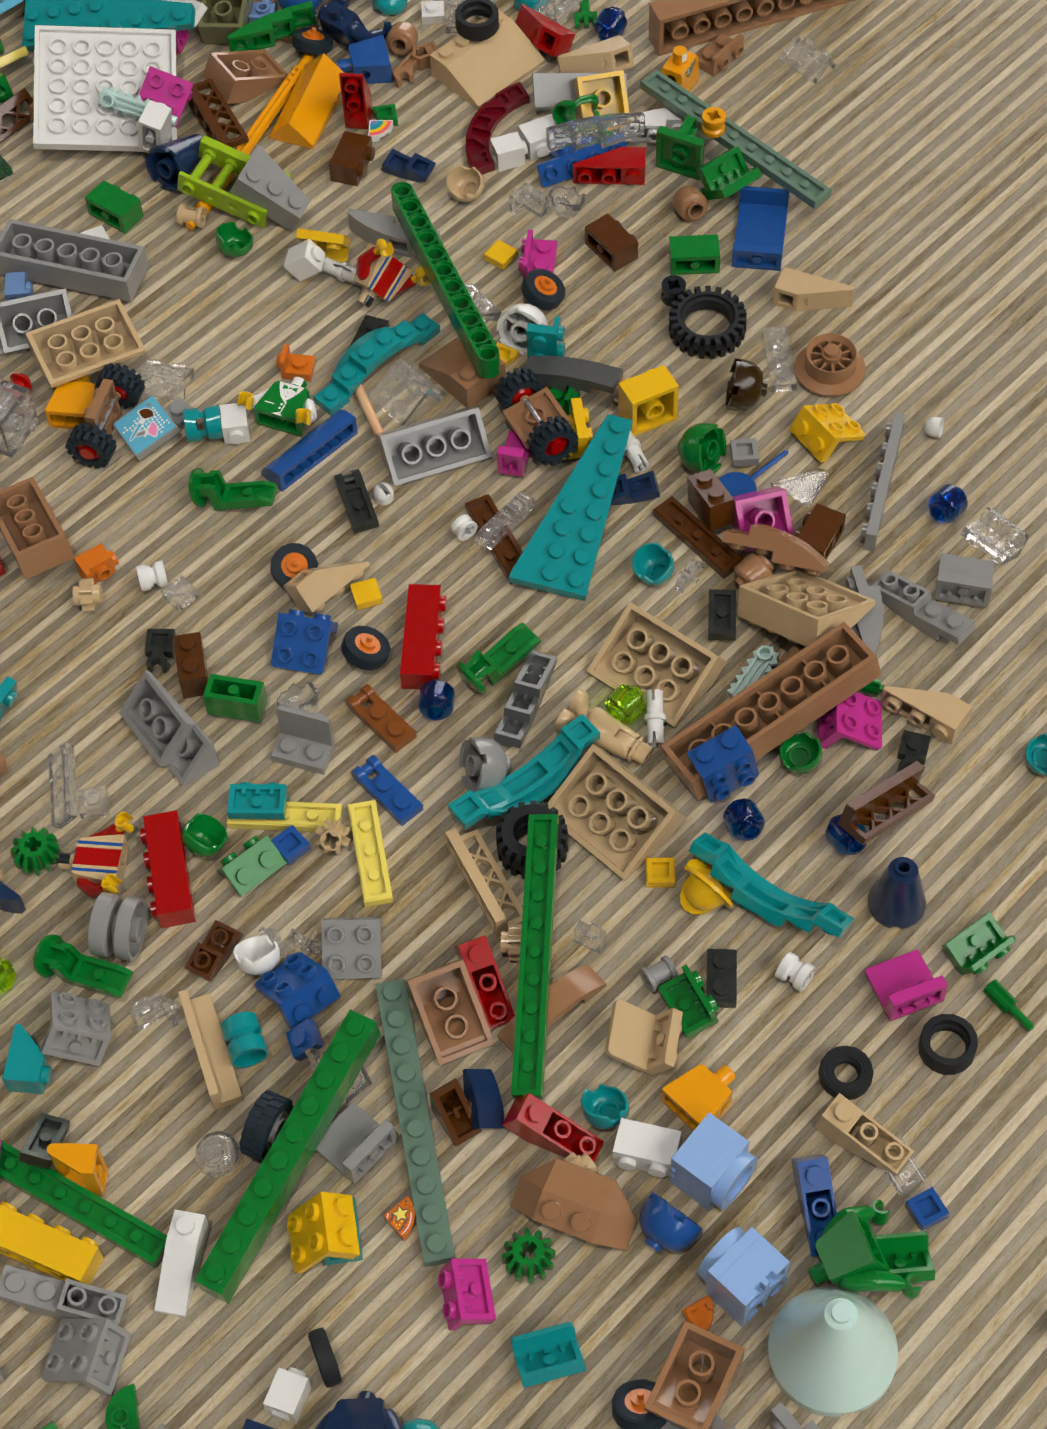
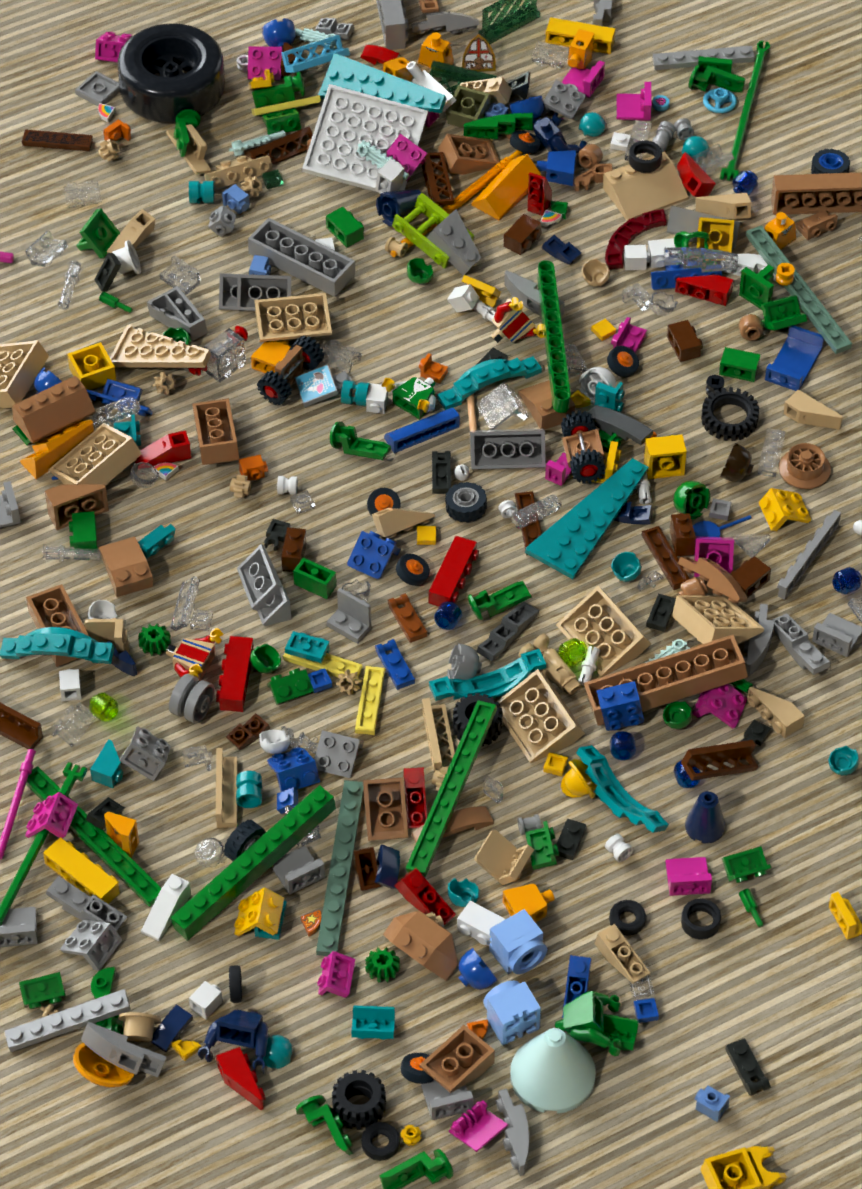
camera: 15 degrees right, 5 degrees down
(64, 960) = (150, 709): green piece -> none
(404, 533) = (466, 502): none -> black wheel

